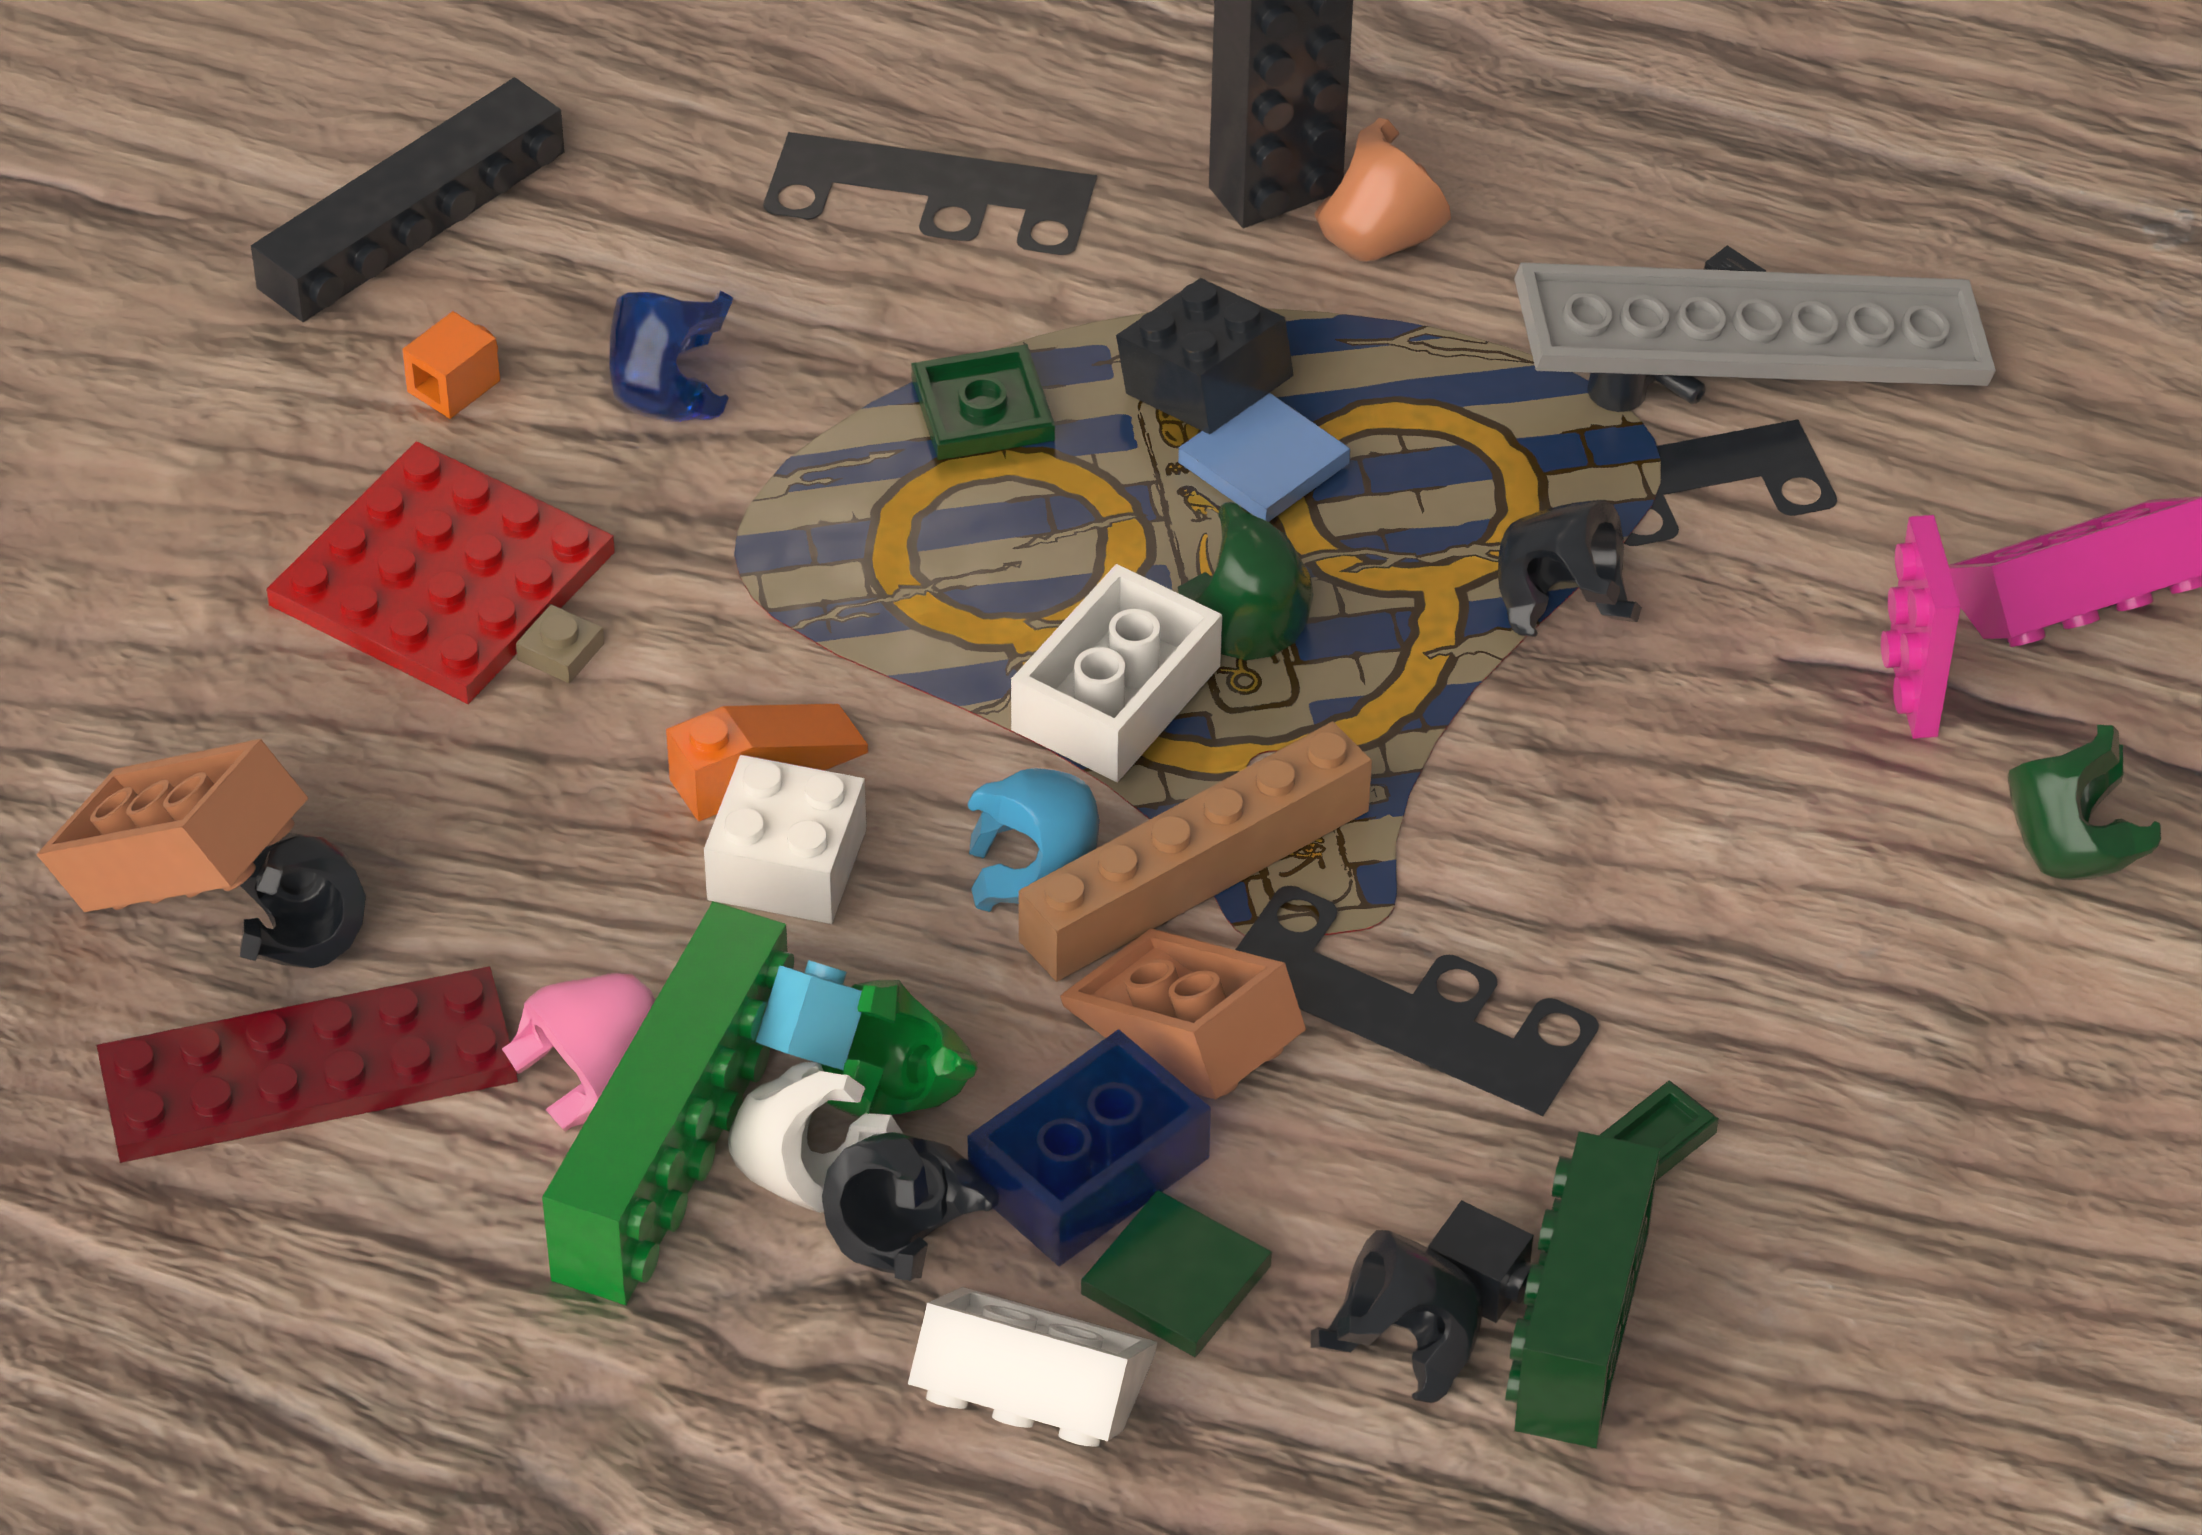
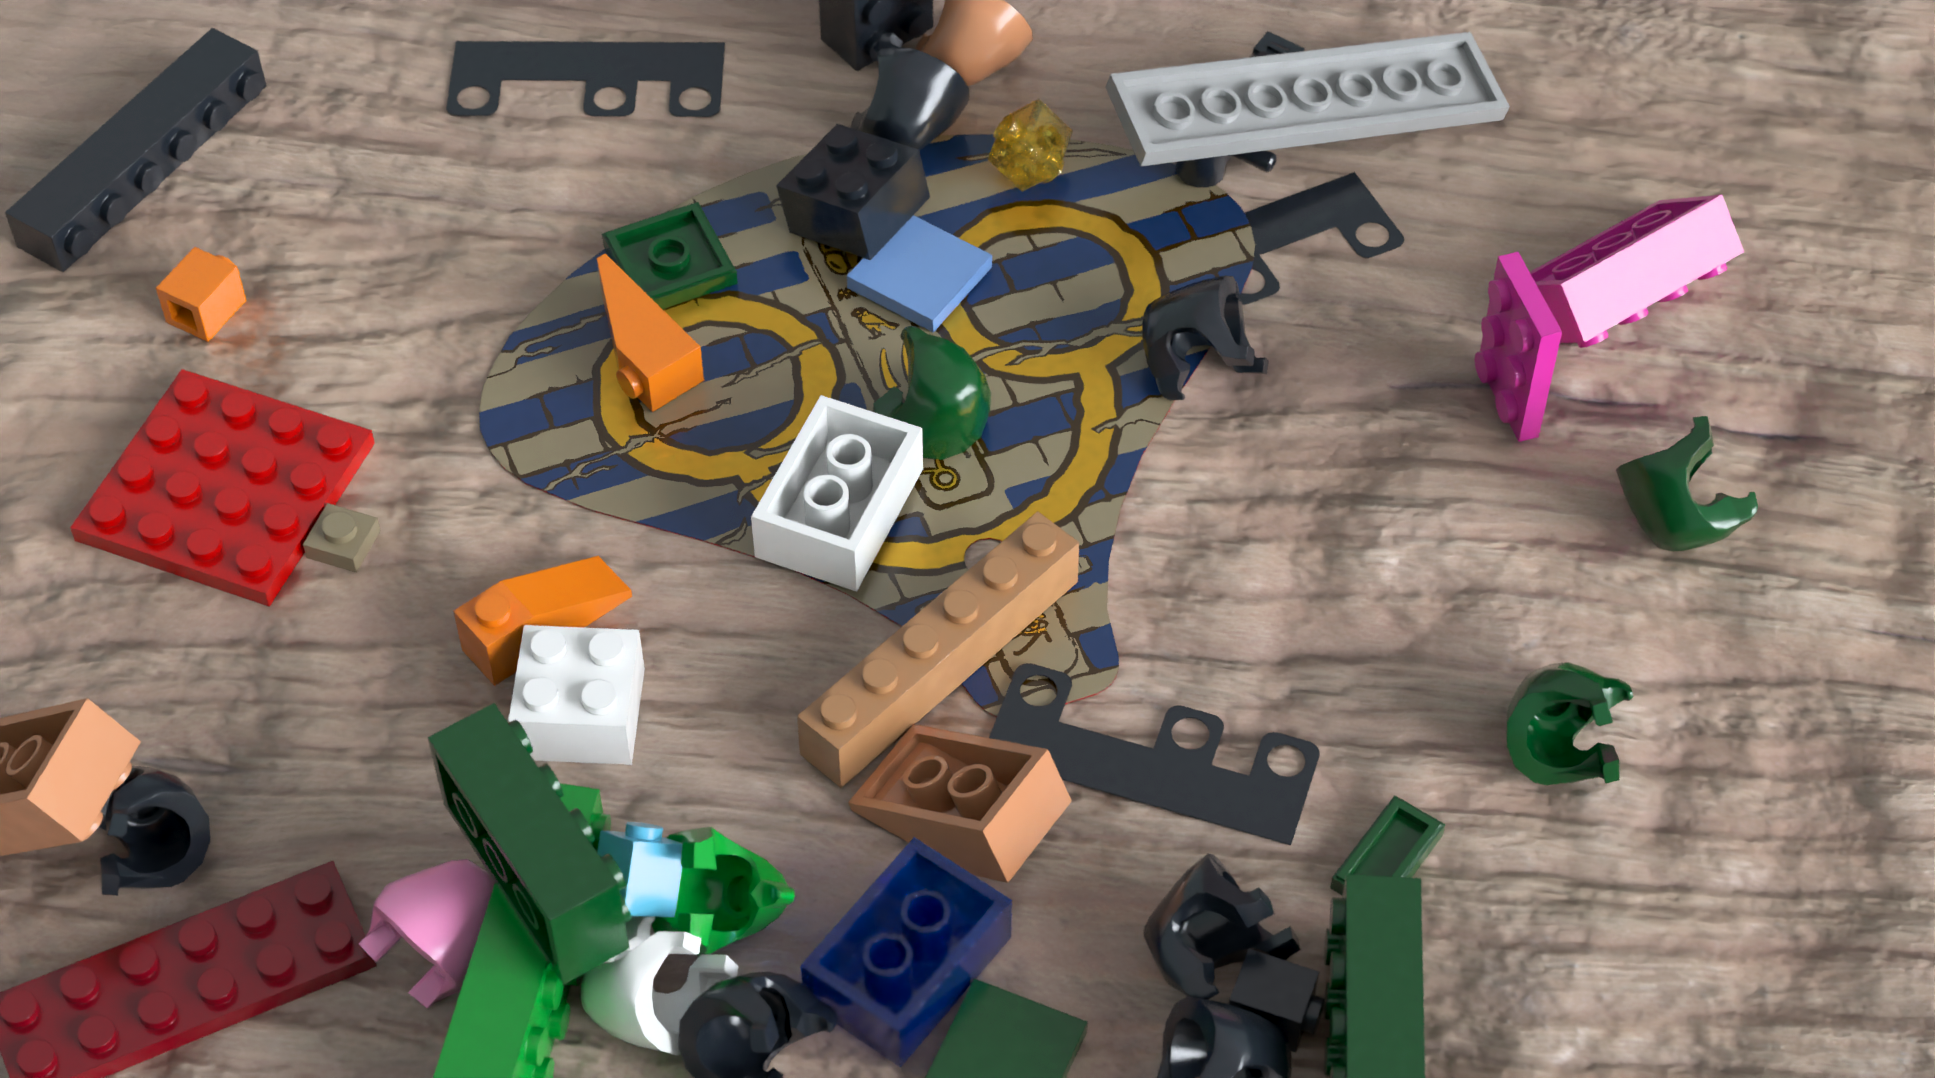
camera: 10 degrees left, 5 degrees up
(643, 352) = (370, 258): clear blue piece -> none
(701, 954) = (532, 842): none -> dark green brick
(941, 493) = (651, 350): none -> orange slope
(1047, 807) = (803, 633): dark azure piece -> none
(1295, 260) = (913, 96): none -> black piece
(1420, 334) = (1030, 145): none -> clear yellow brick
(1424, 1170) = (1209, 925): none -> black piece
(1861, 1024) = (1550, 713): none -> dark green piece

